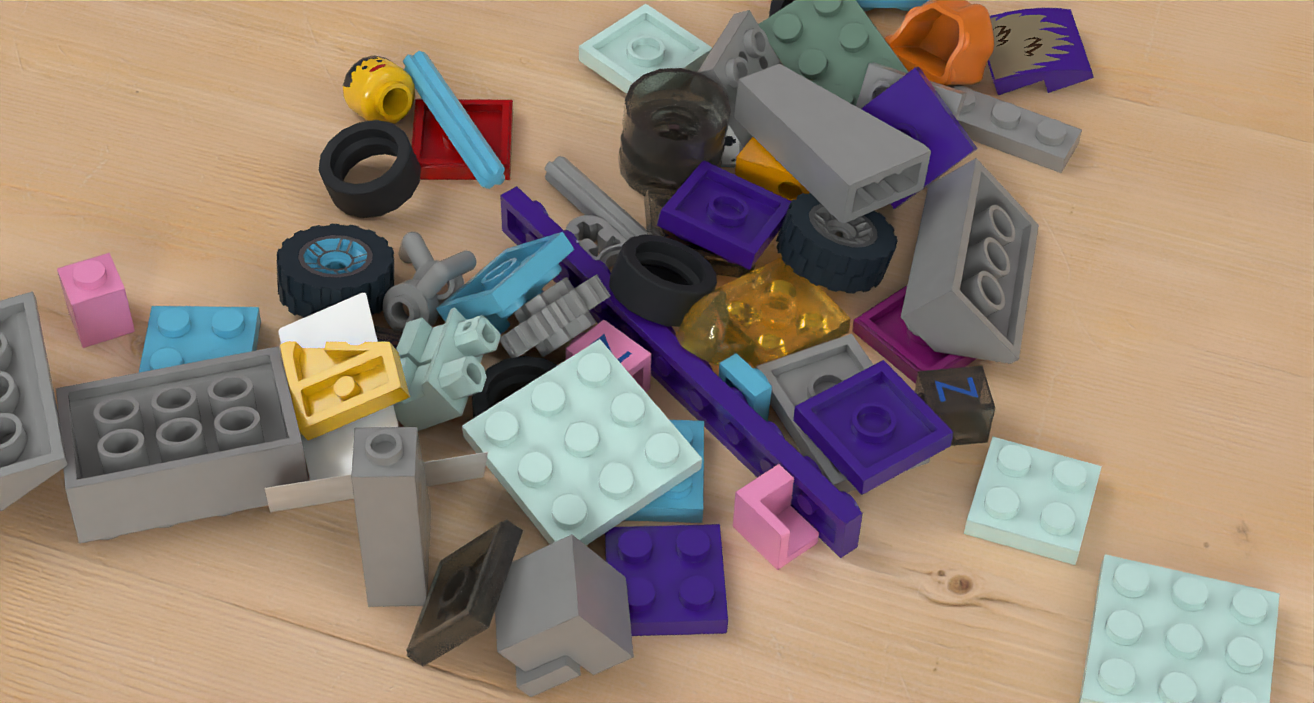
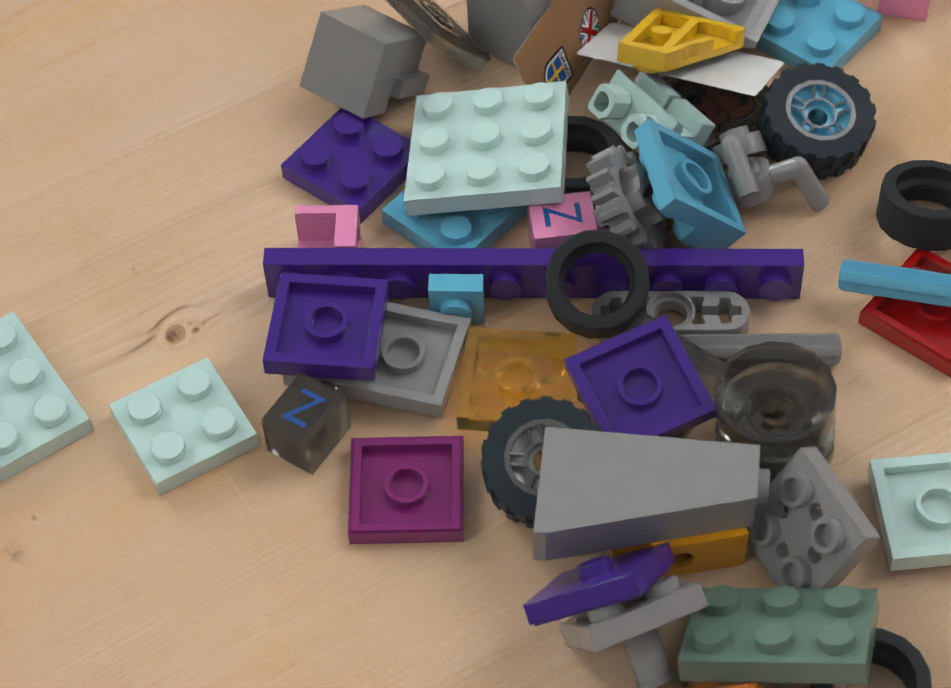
camera: 135 degrees right, 5 degrees up
(711, 334) = (515, 294): clear yellow plate -> none
(971, 267) = (421, 546): light grey slope -> none

